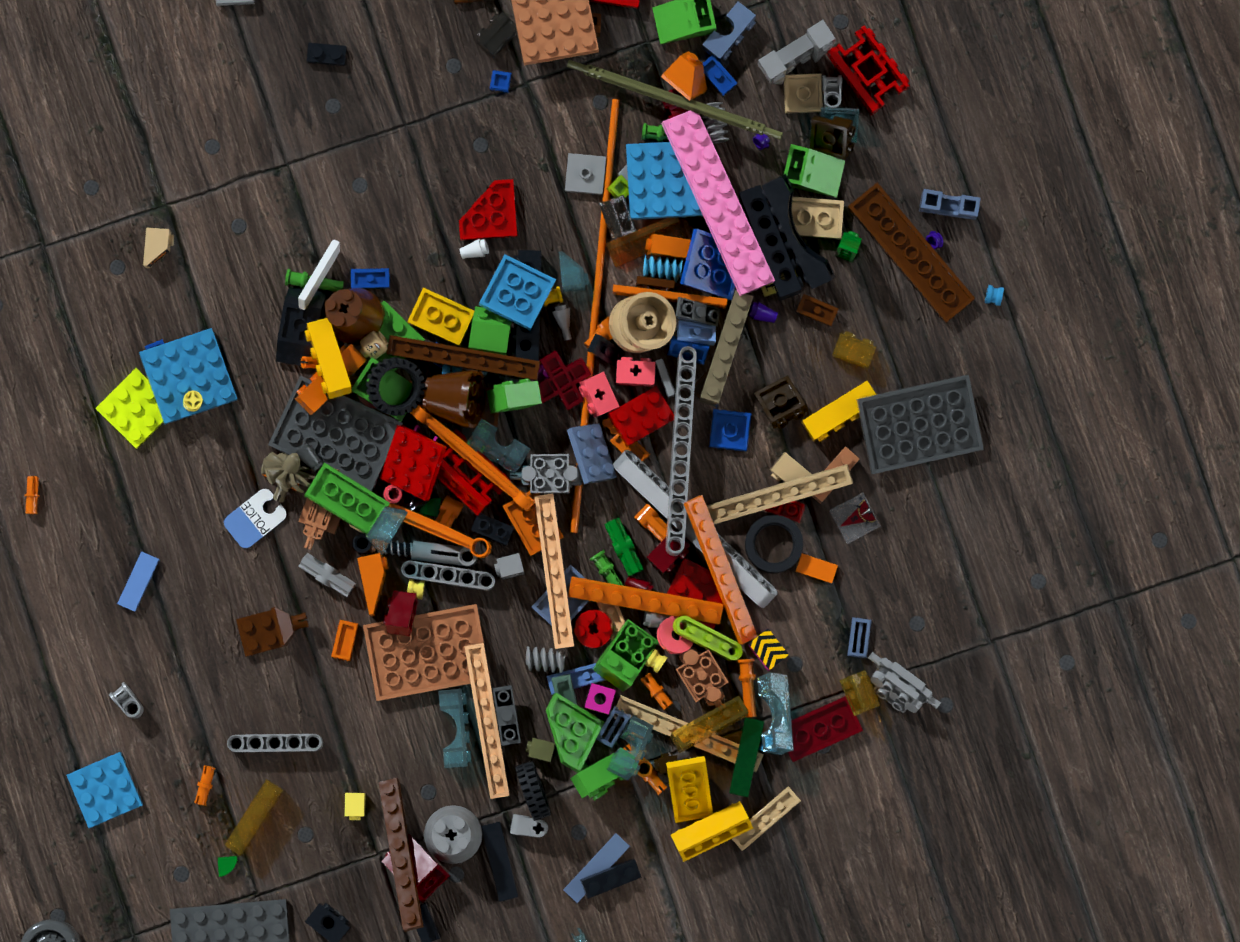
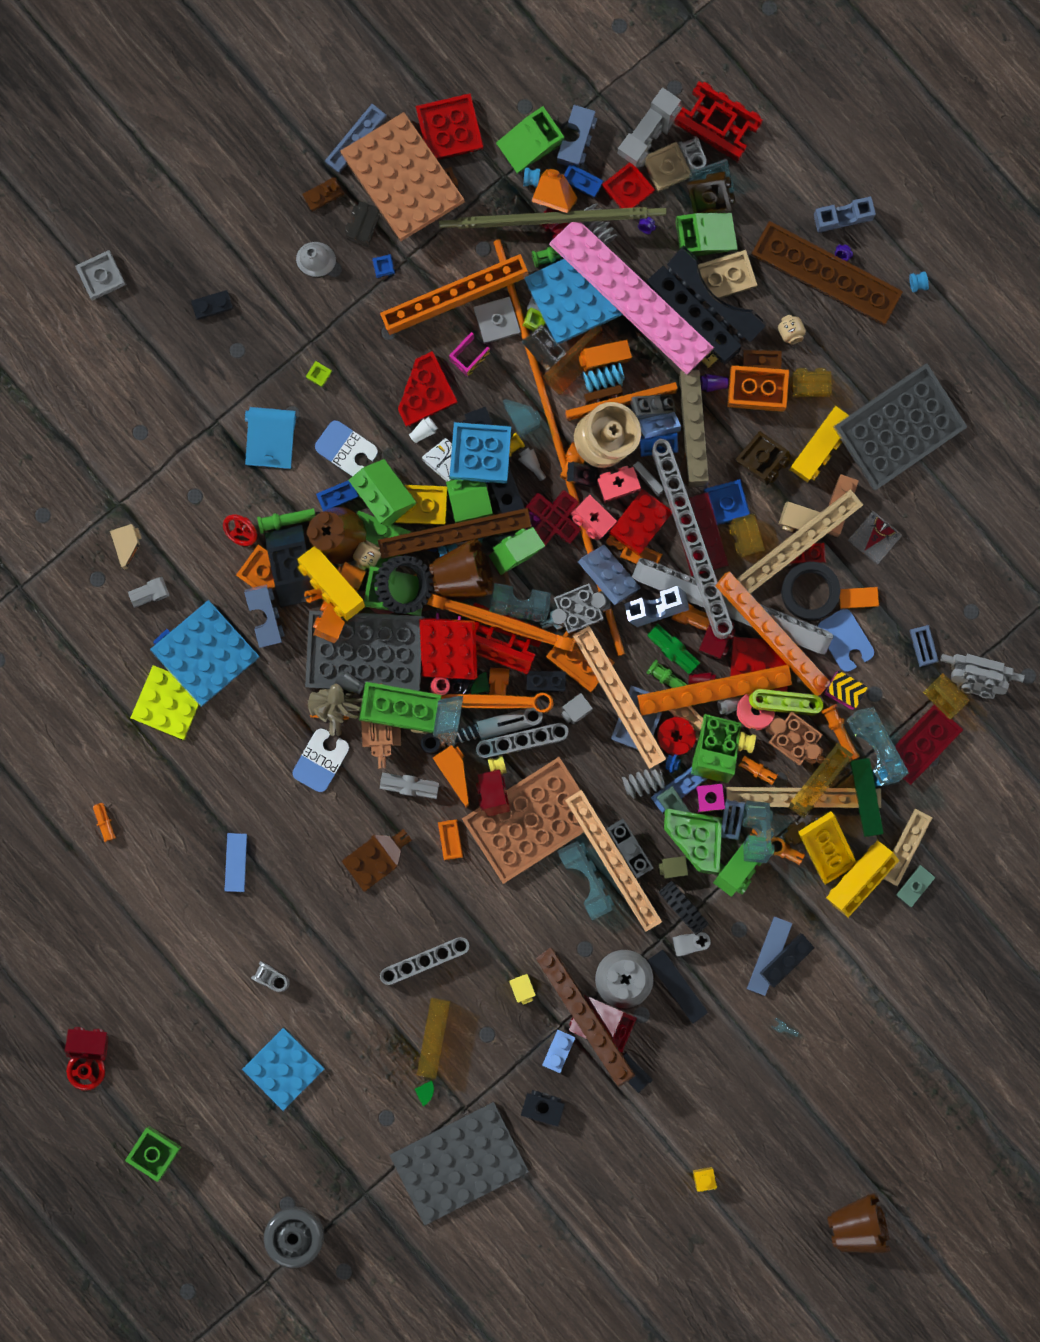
camera: 20 degrees left, 0 degrees up
(164, 299) = (153, 591): none -> light grey piece
(192, 397) = (218, 670): light yellow wheel -> none
(204, 785) = (375, 1026): orange pin -> none
(259, 346) = (261, 599): none -> sand blue arch
(267, 320) = (257, 569): none -> orange plate
(270, 272) = (242, 528): none -> red piece
(319, 274) = (289, 510): white tile -> none
(330, 196) = (270, 434): none -> dark azure door
(365, 876) = (558, 1051): none -> light blue plate
(393, 234) = (342, 445): none -> piece
(399, 158) = (318, 374): none -> lime plate
(412, 292) = (382, 492): none -> bright green slope
(440, 49) = (316, 259): none -> light grey hat
(478, 281) = (440, 459): none -> white torso
(539, 187) = (467, 371): none -> dark pink piece
(554, 134) = (454, 294): none -> orange brick
(579, 653) = (673, 763): none -> blue plate
(636, 503) = (647, 611): none -> sand blue arch
(671, 53) = (531, 177): none -> dark azure wheel
(701, 449) = (709, 531): none -> dark red plate
(705, 267) = (645, 361): blue plate -> none
(736, 468) = (747, 535): none -> clear yellow brick
(758, 99) = (628, 187): none -> red plate
(759, 858) = (915, 886): none -> sand green plate
(789, 600) = (846, 637): none -> medium blue piece
(801, 335) = (758, 388): none -> orange brick
(848, 246) = (768, 290): green slope -> none
(856, 292) = (791, 329): none -> tan head

